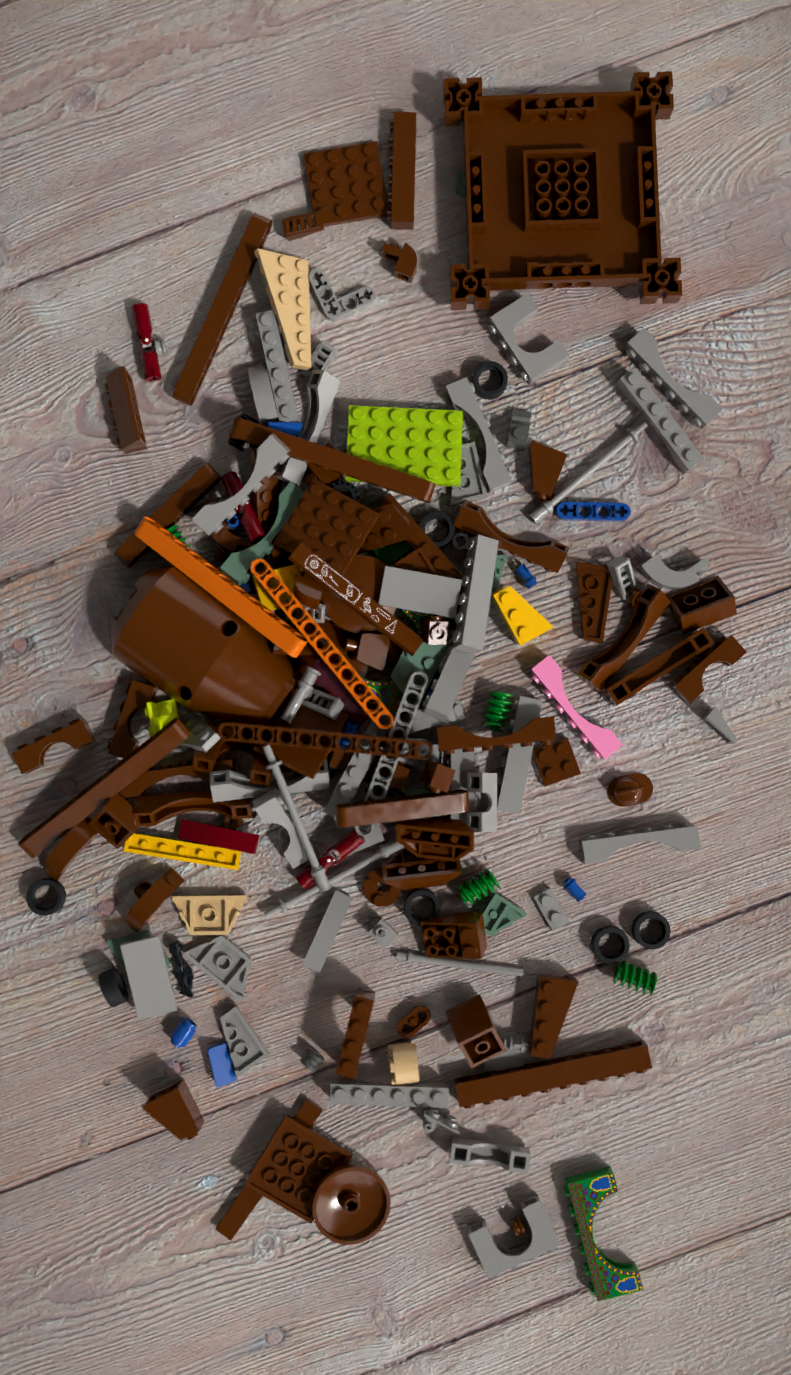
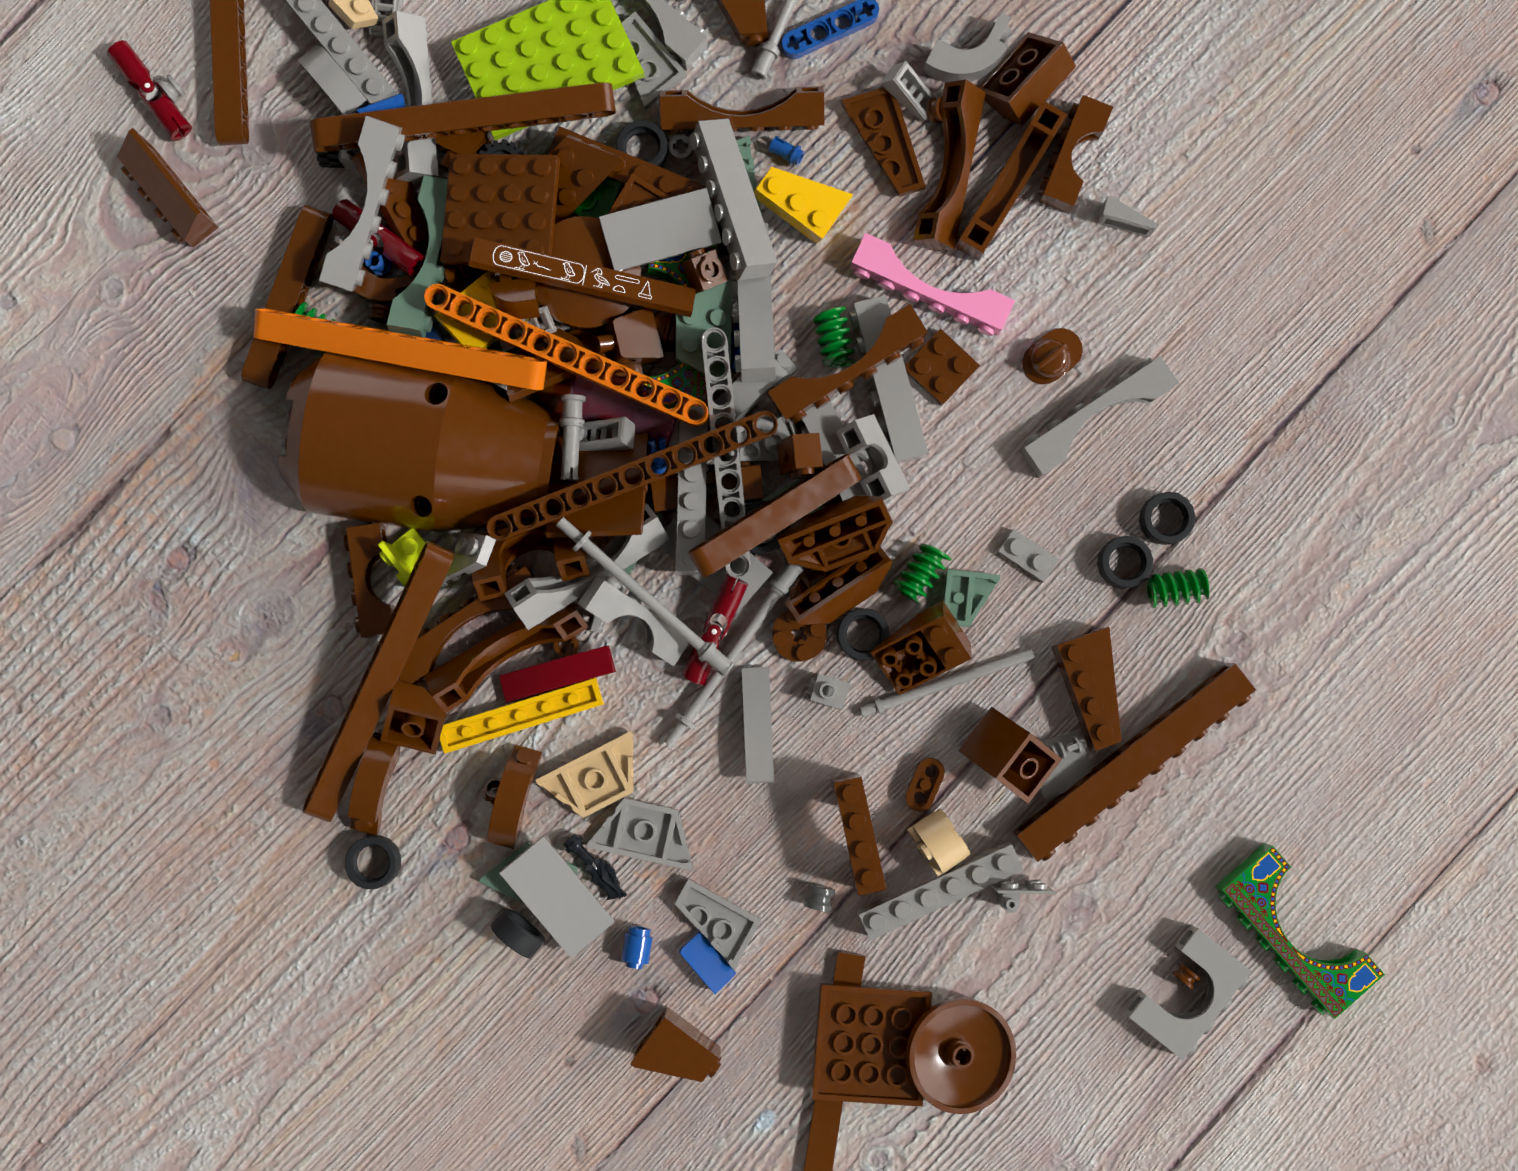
camera: 30 degrees left, 0 degrees up
(32, 756) = (264, 691): reddish brown arch -> none
(507, 1156) = (1119, 897): light grey arch -> none
(574, 889) = (1044, 515): blue pin -> none

